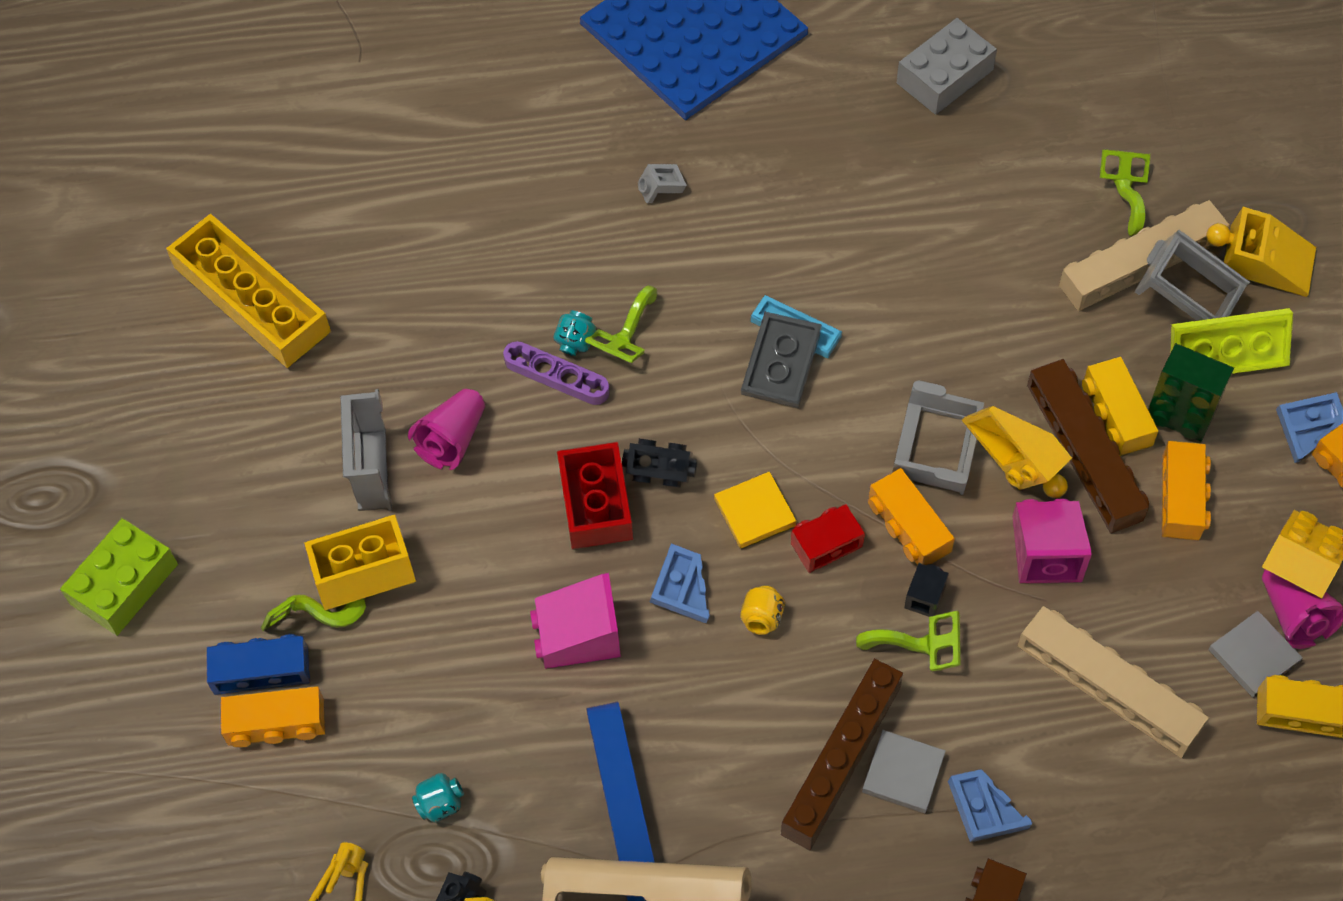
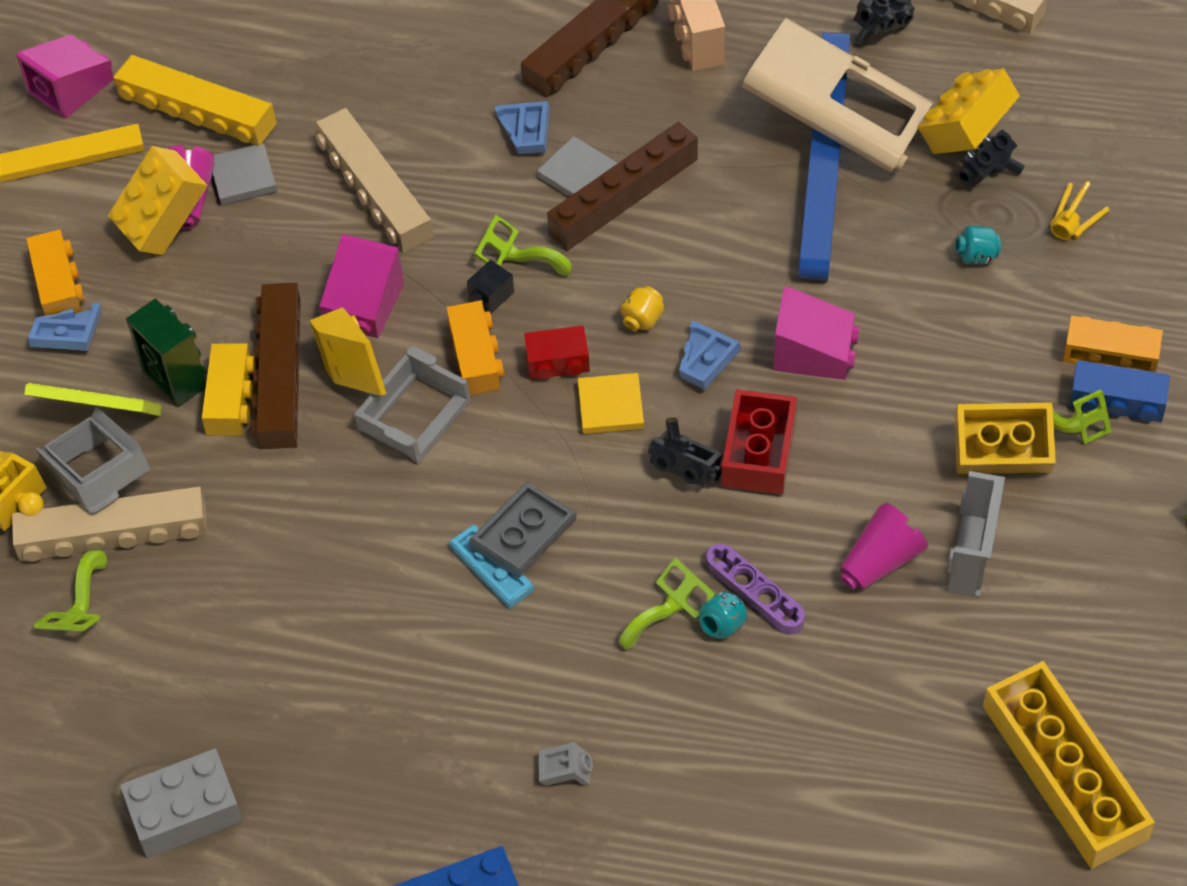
camera: 160 degrees left, 5 degrees down
(1185, 490) = (219, 301): light orange brick -> none

